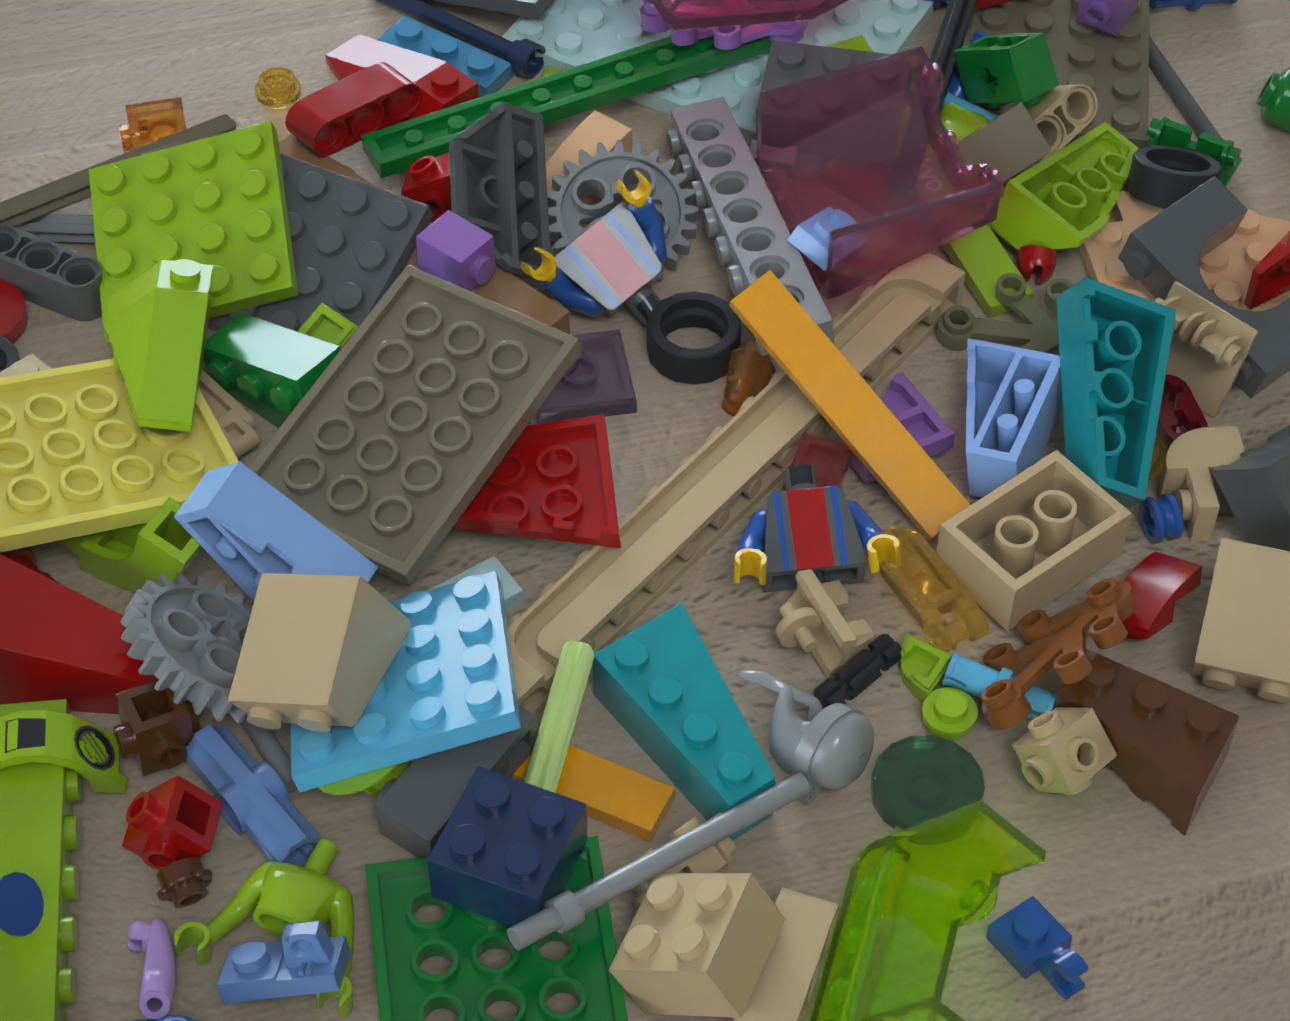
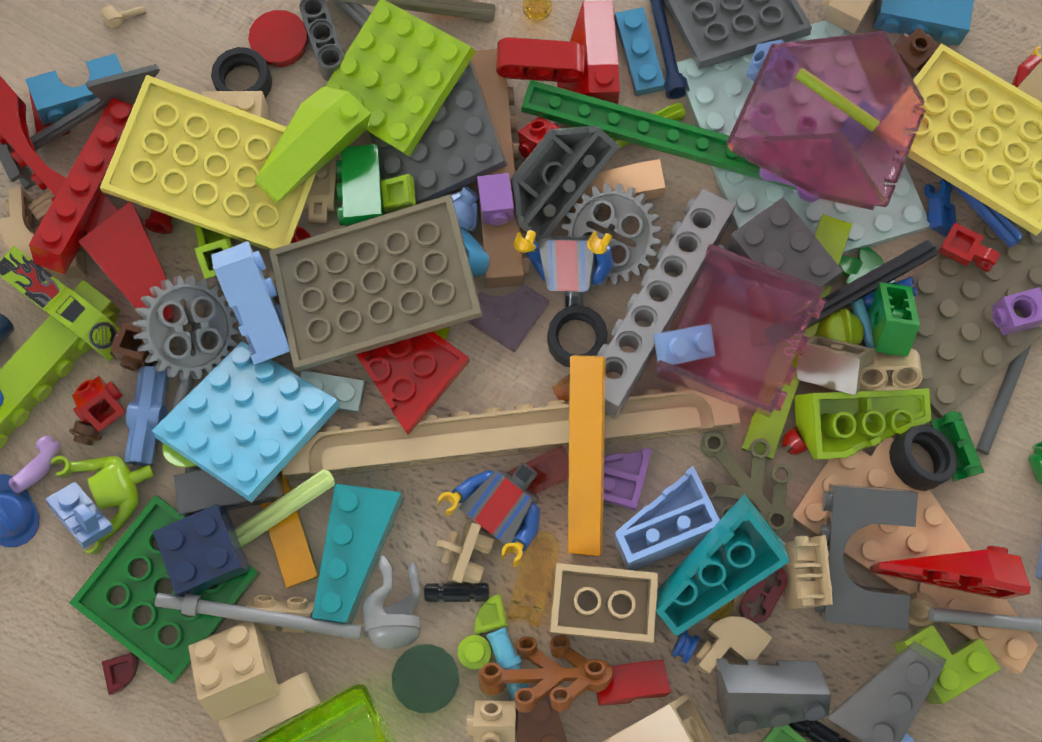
camera: 45 degrees right, 25 degrees up
(314, 650) = (208, 382): tan slope -> none

